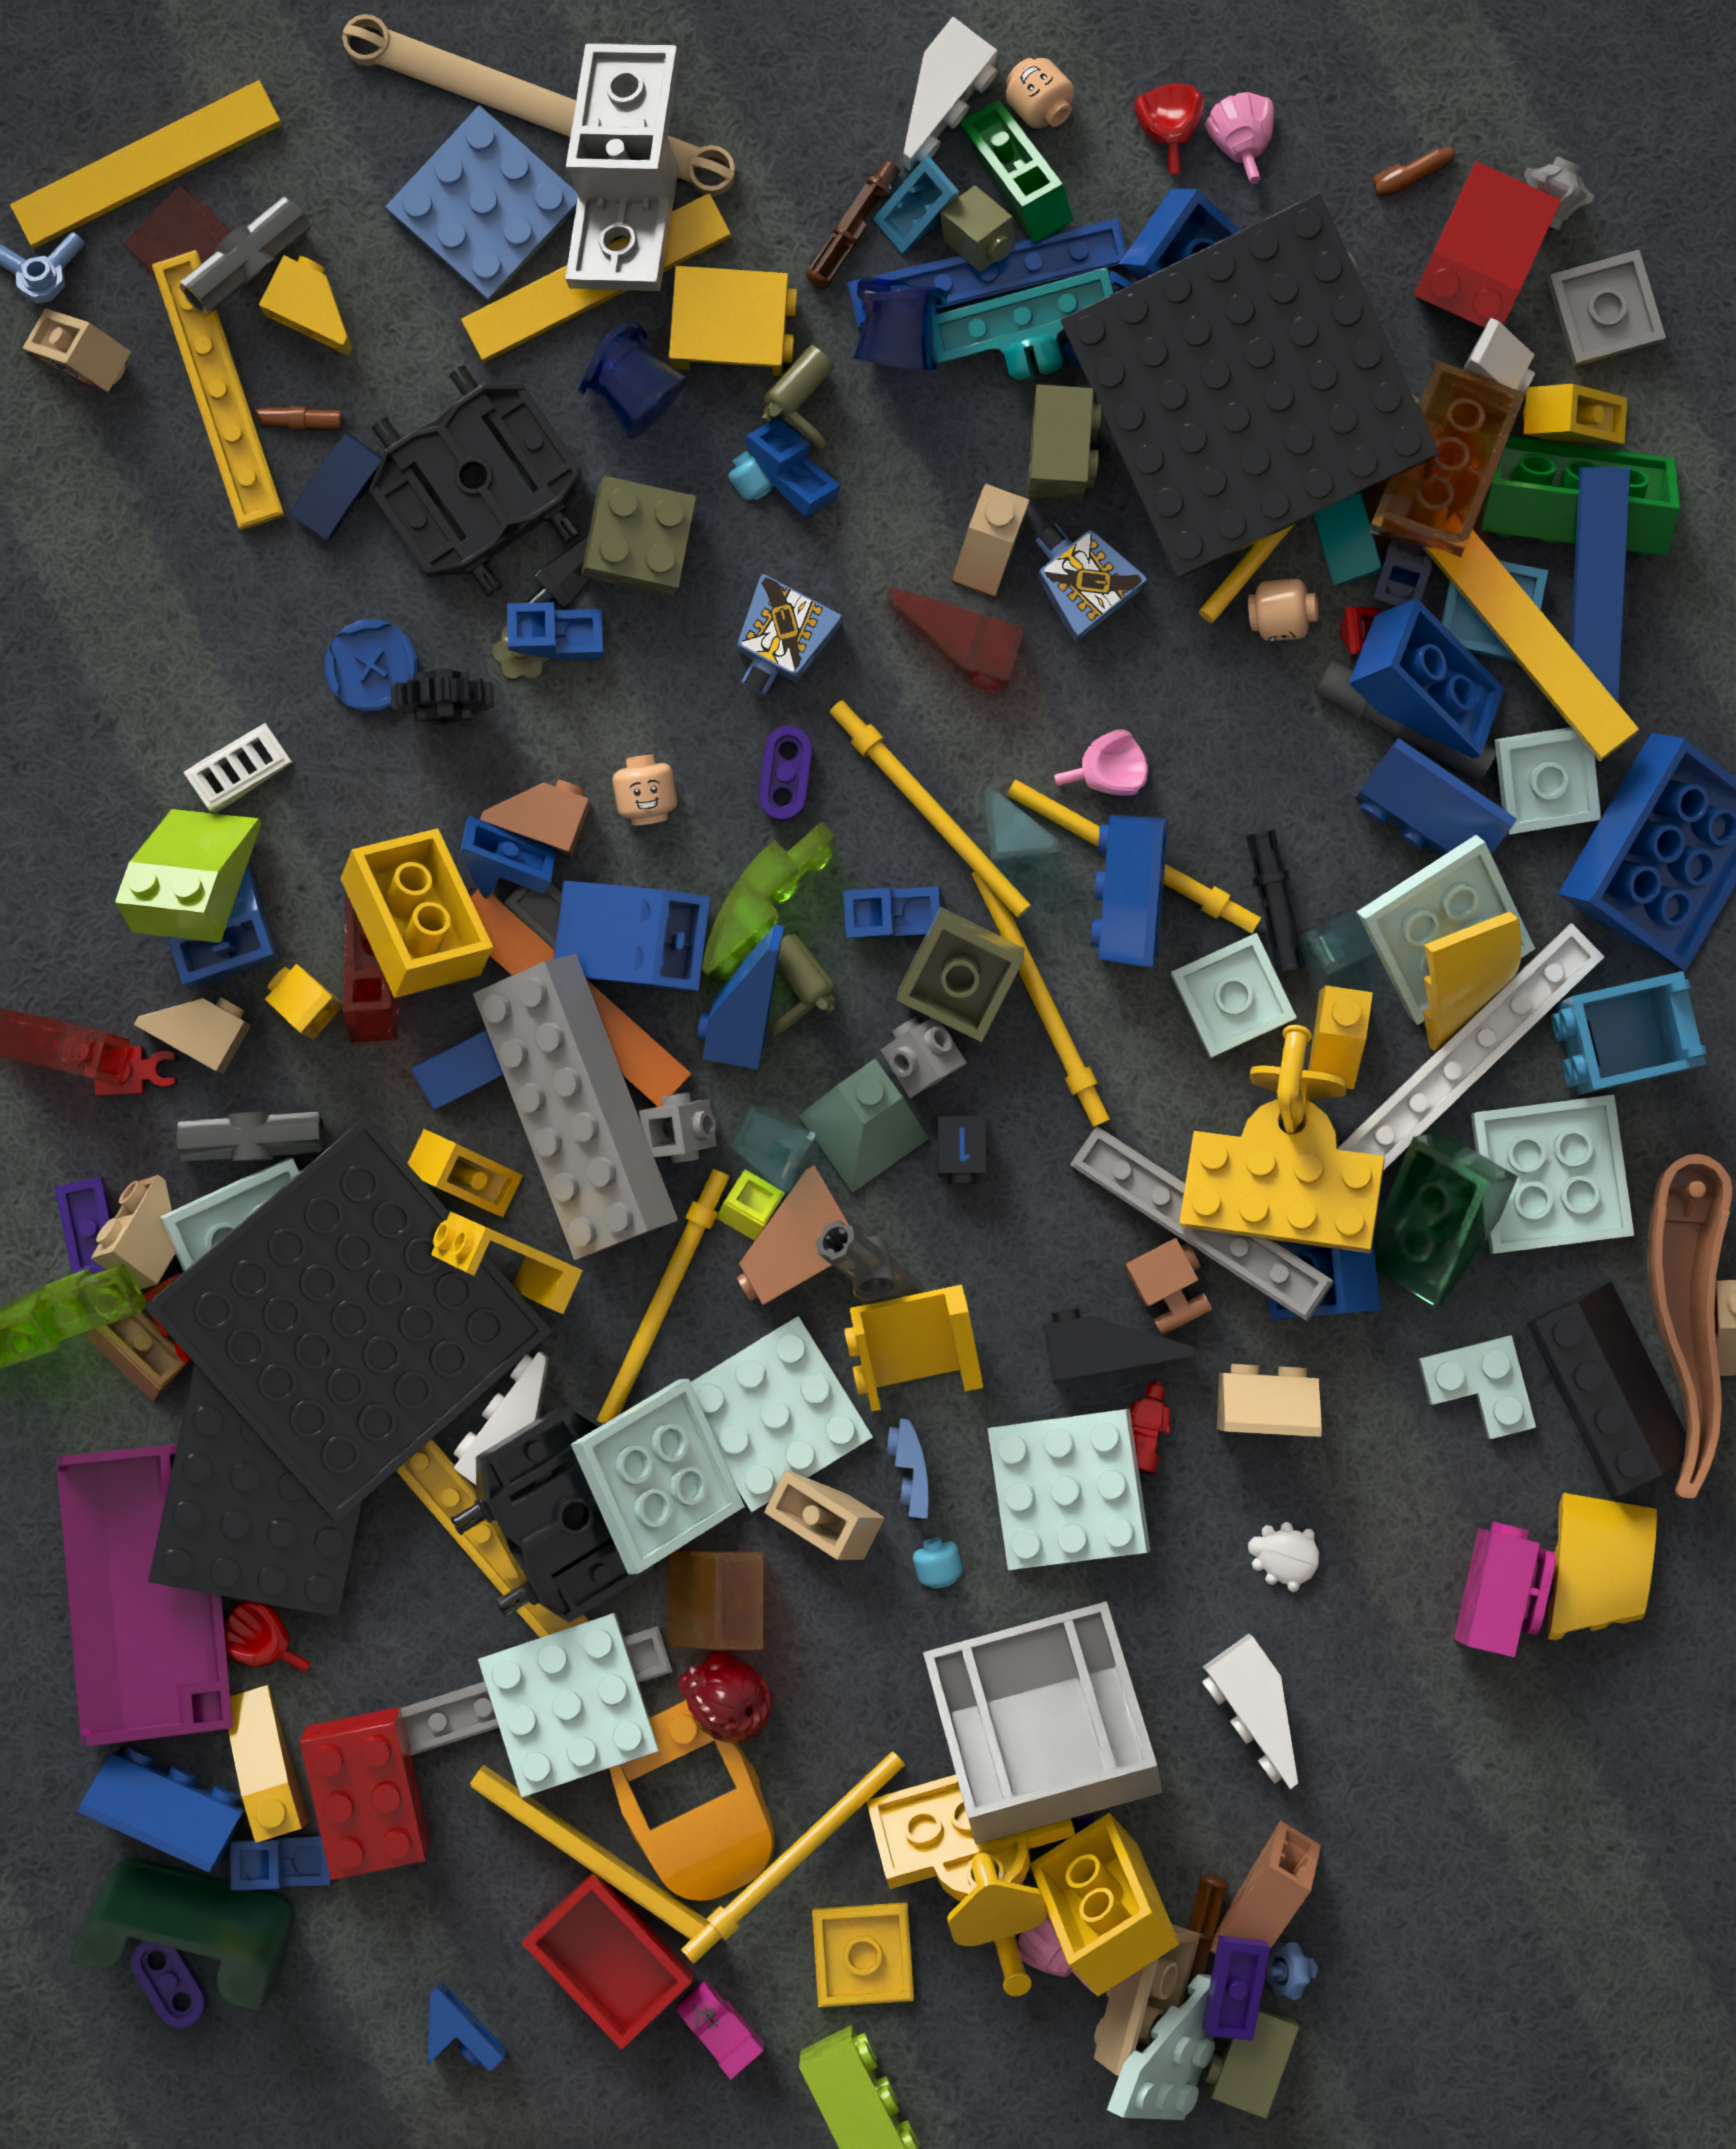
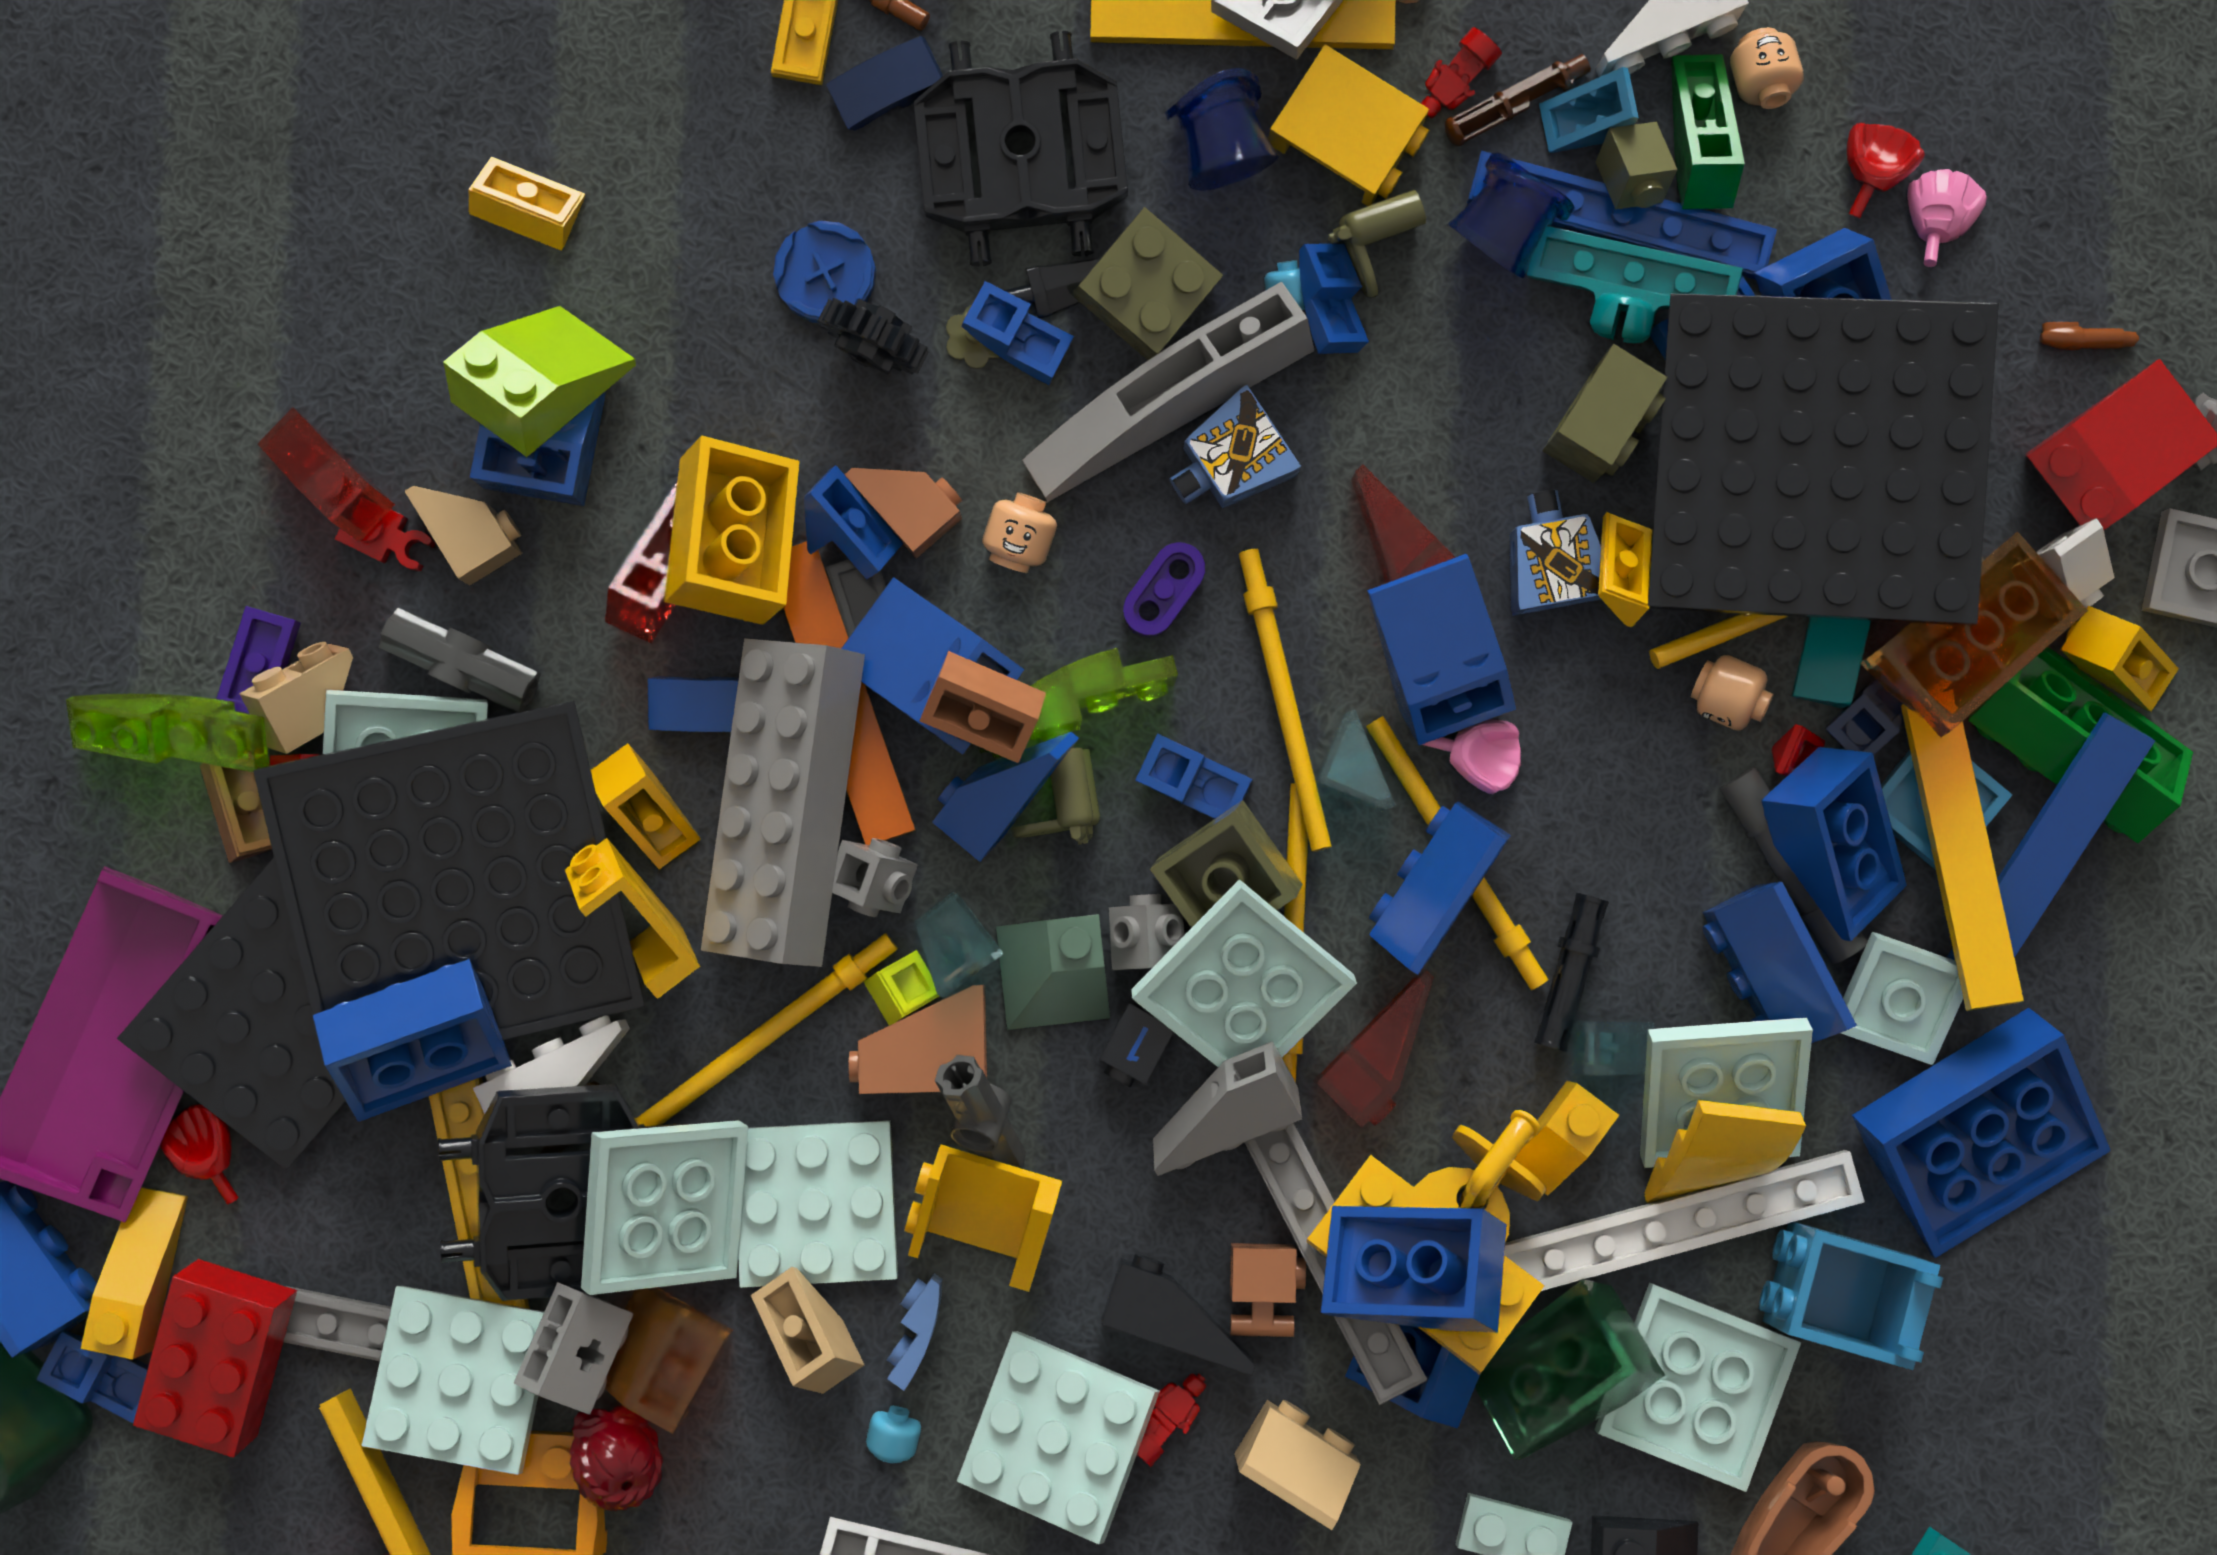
camera: 25 degrees right, 0 degrees up
(97, 741) = (525, 203): none -> yellow slope
(229, 753) = (624, 320): white slope -> none
(302, 1000) = (579, 557): yellow slope -> none
(387, 1452) = (411, 1040): none -> blue slope
(647, 1627) = (573, 1349): none -> light grey brick
(695, 942) = (983, 707): none -> nougat brick
(705, 609) = (1174, 389): none -> light grey slope
(792, 241) = (1450, 82): none -> red piece
(990, 540) = (1484, 471): tan slope -> none
(1021, 1052) = (1243, 980): none -> light aqua plate
(1032, 701) = (1441, 650): none -> blue slope
(1064, 1151) = (1234, 1105): none -> light grey slope
(1142, 556) = (1625, 567): none -> yellow slope
(1158, 1057) = (1374, 1062): none -> clear red slope
(1233, 995) = (1480, 1041): light aqua plate -> none
(1274, 1194) = (1415, 1267): none -> blue slope

